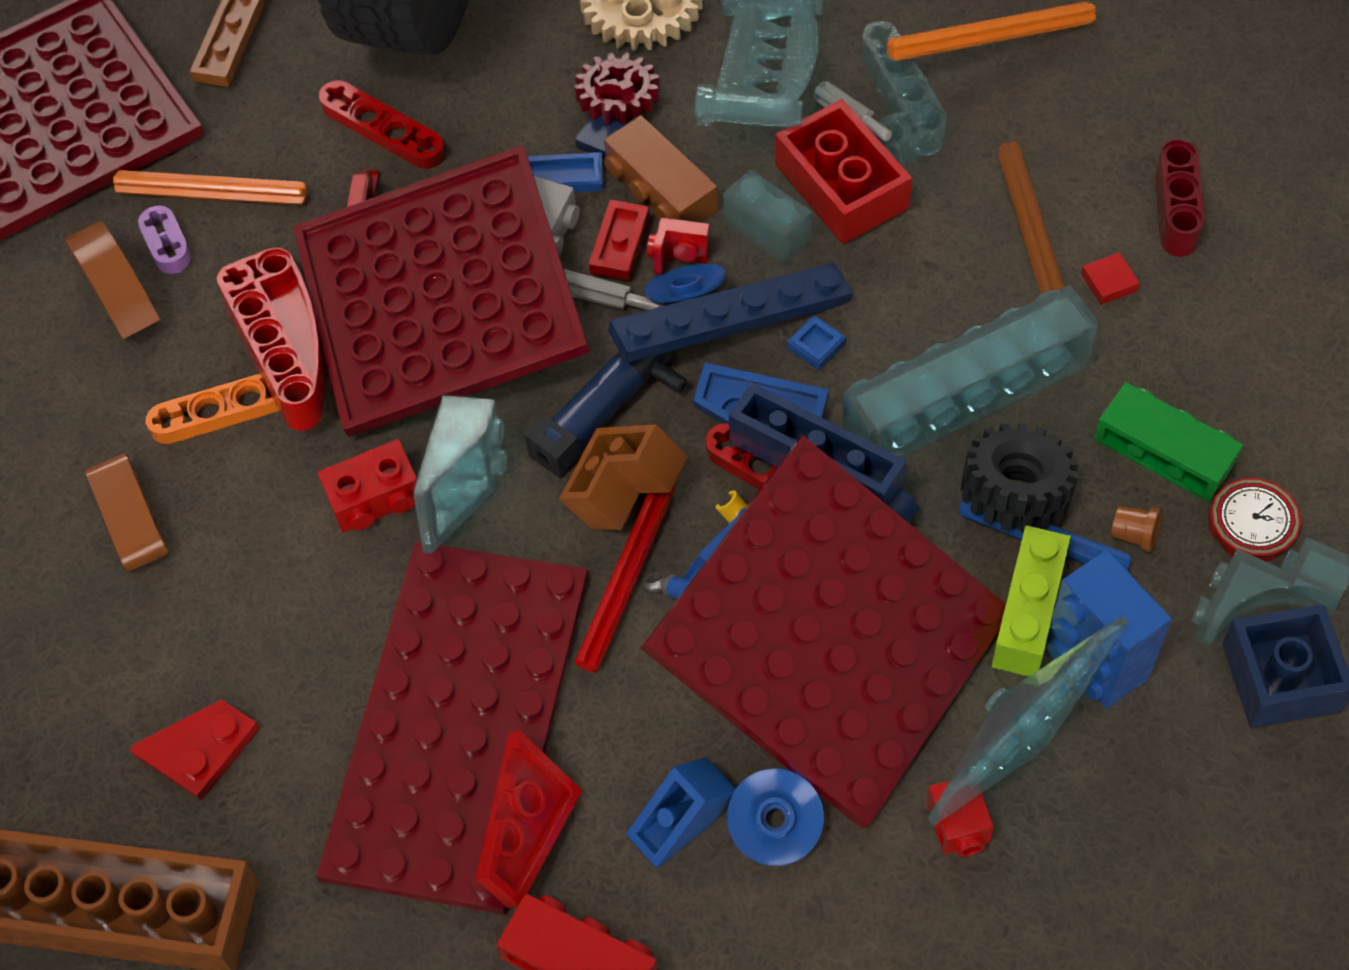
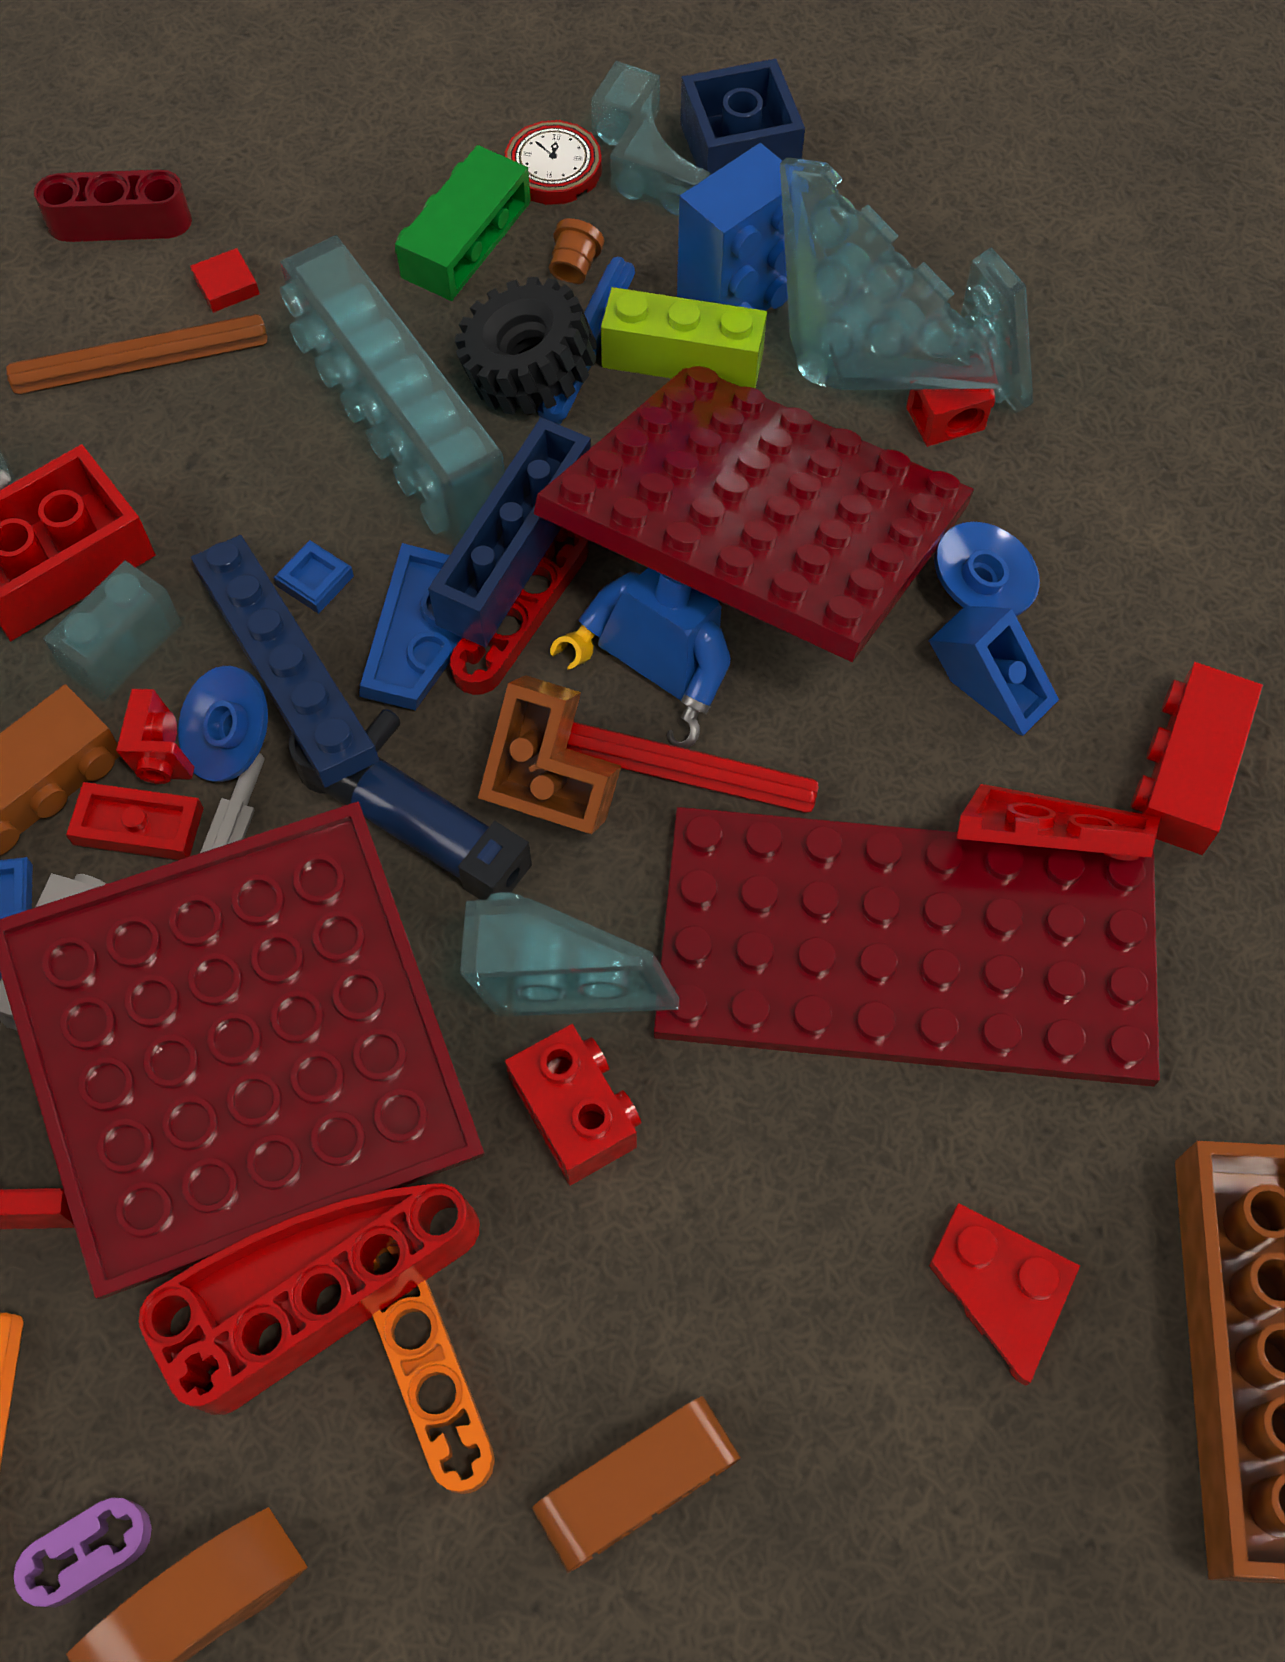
camera: 100 degrees left, 5 degrees up
(992, 826) = (1000, 302): none -> clear light blue wing

